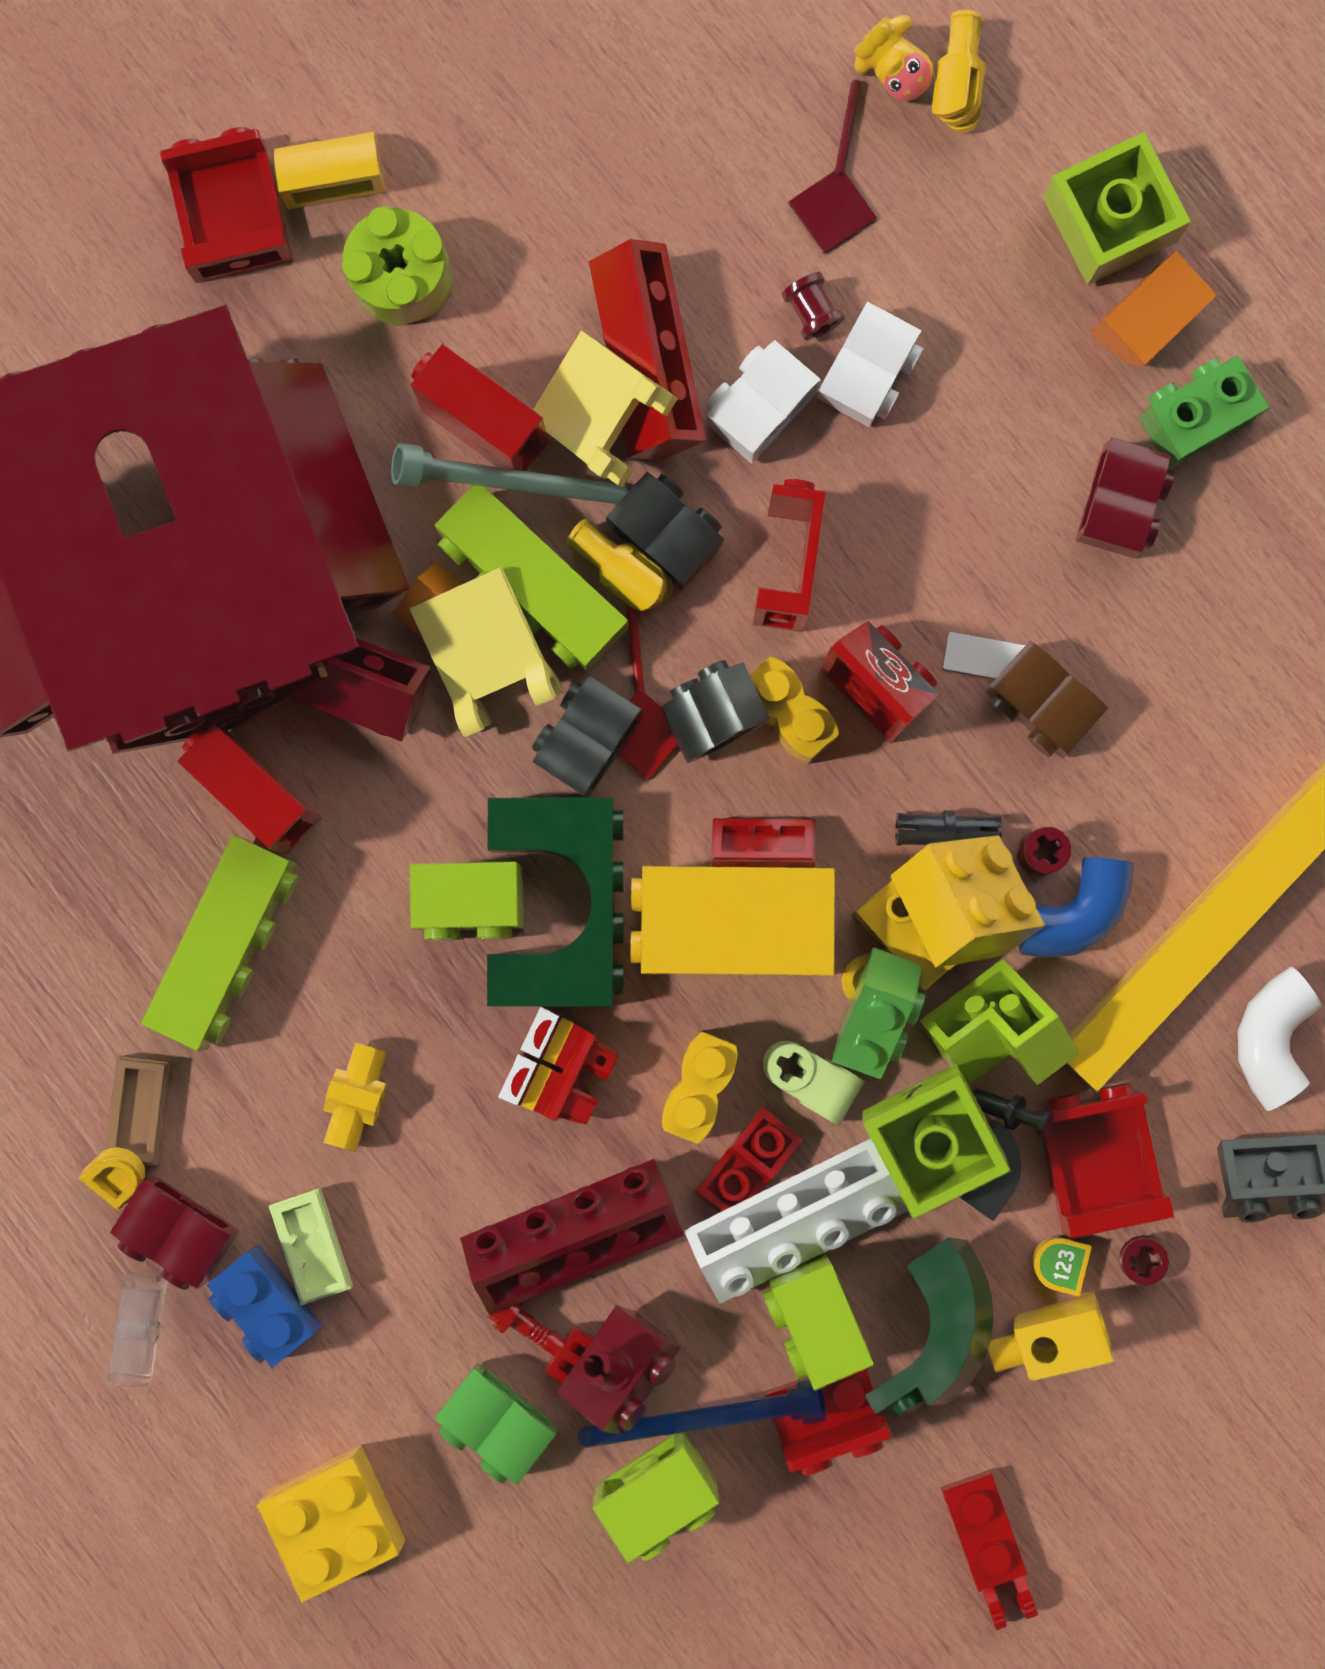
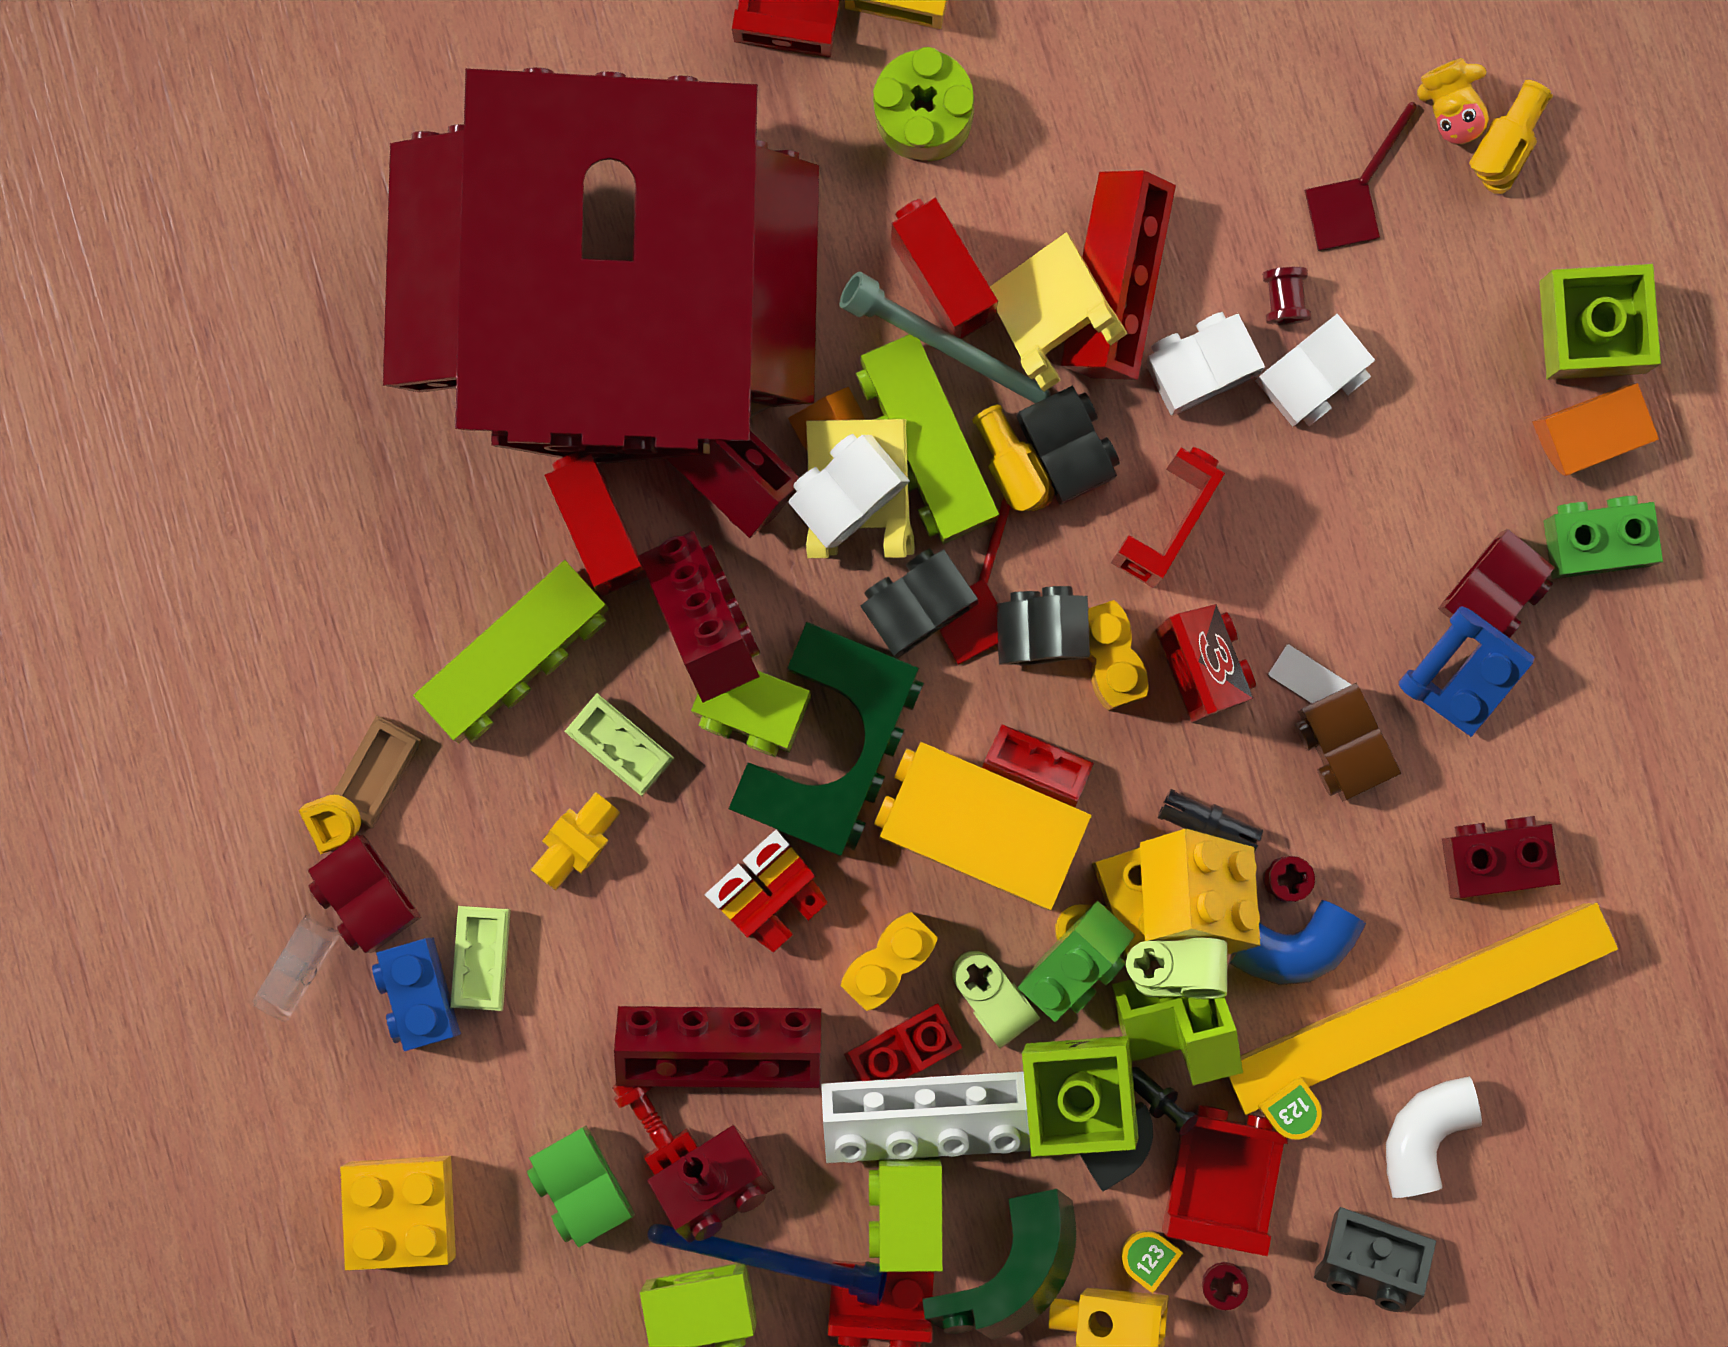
camera: 20 degrees right, 0 degrees up
(359, 988) = (619, 744): none -> yellowish green plate
(384, 833) = (702, 615): none -> dark red brick
(474, 656) = (847, 489): none -> white brick
(987, 977) = (1187, 969): none -> yellowish green piece
(1141, 1068) = (1293, 1110): none -> tile
(1145, 590) = (1481, 679): none -> blue plate
(1235, 750) = (1500, 859): none -> dark red brick

